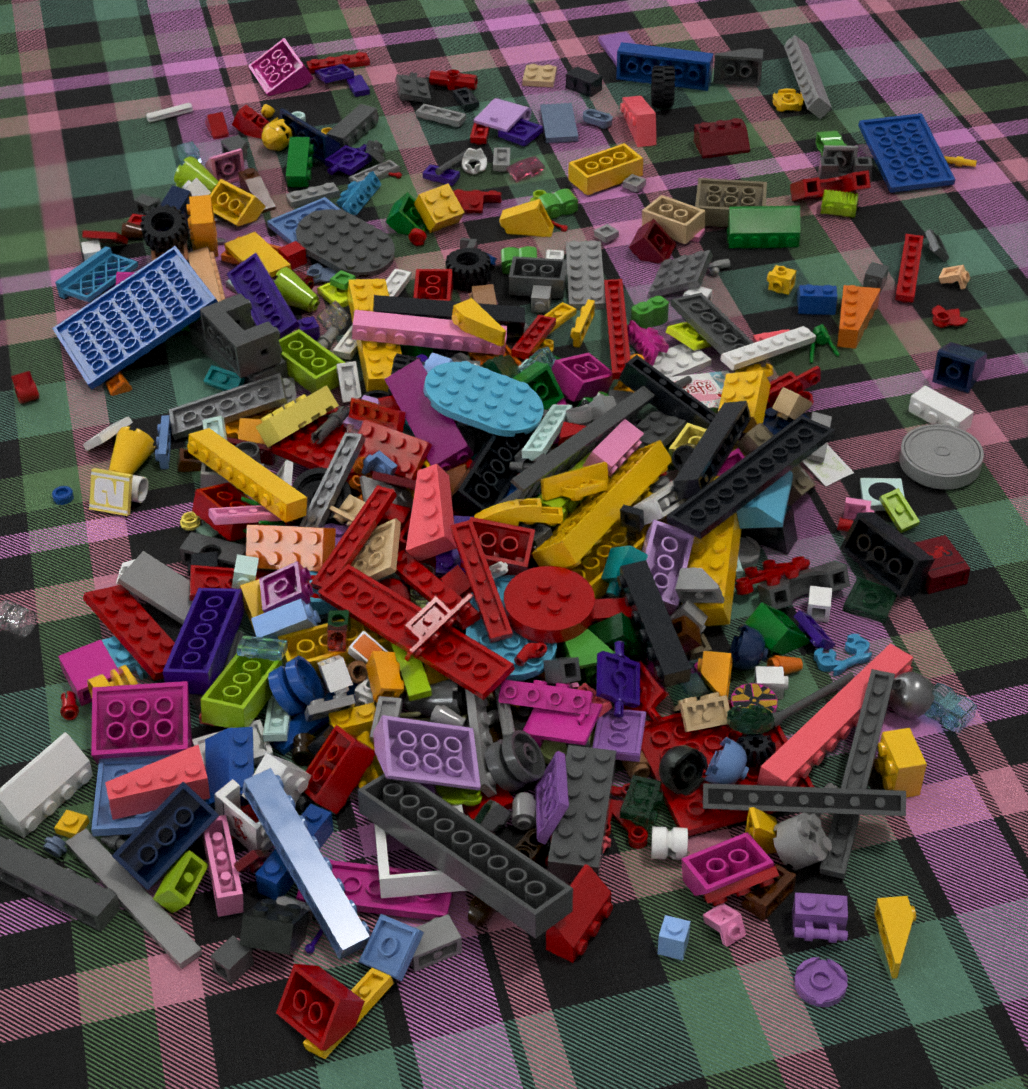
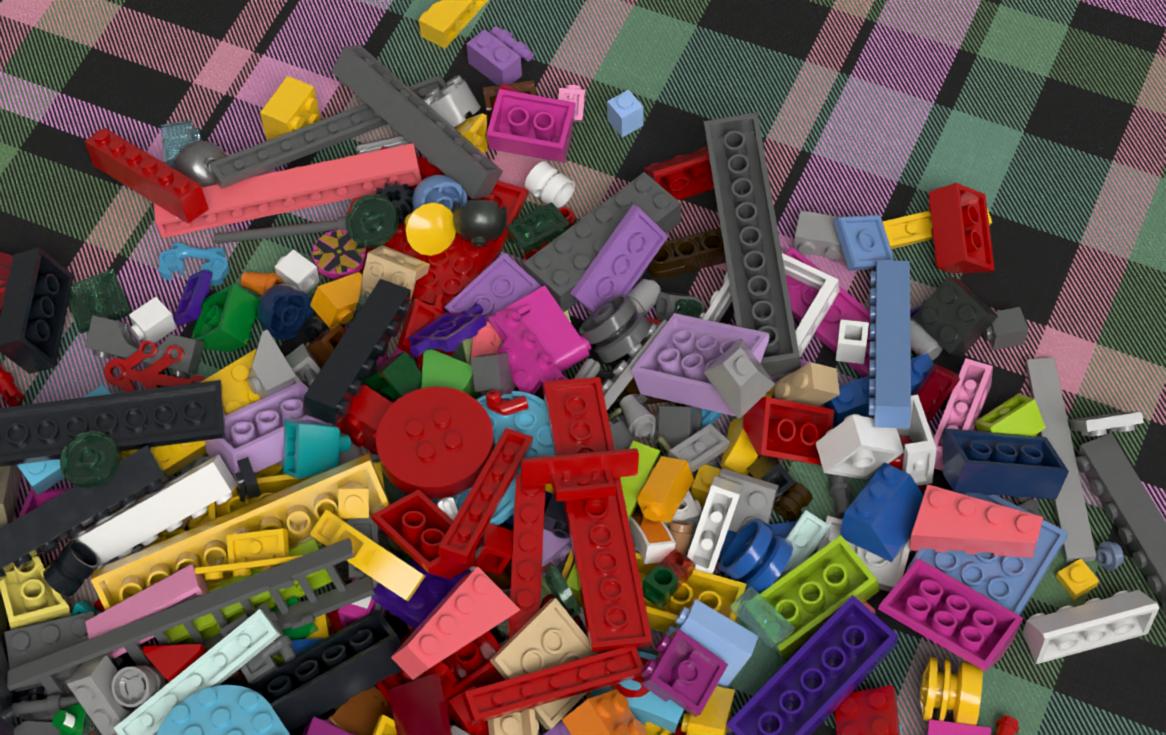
camera: 140 degrees left, 15 degrees up
(106, 923) = (1098, 424): none -> plate
(338, 851) = (852, 341): none -> white brick
(341, 801) = (809, 385): none -> tan brick
(380, 723) = (739, 378): none -> light grey slope
(397, 579) = (560, 589): none -> clear green tile
(553, 532) = (353, 502): none -> yellow plate
(709, 740) = (430, 228): none -> yellow dish
(720, 460) = (90, 459): none -> clear green tile
(820, 982) = (544, 26): medium lavender tile -> none
(932, 657) = (147, 175): none -> red brick

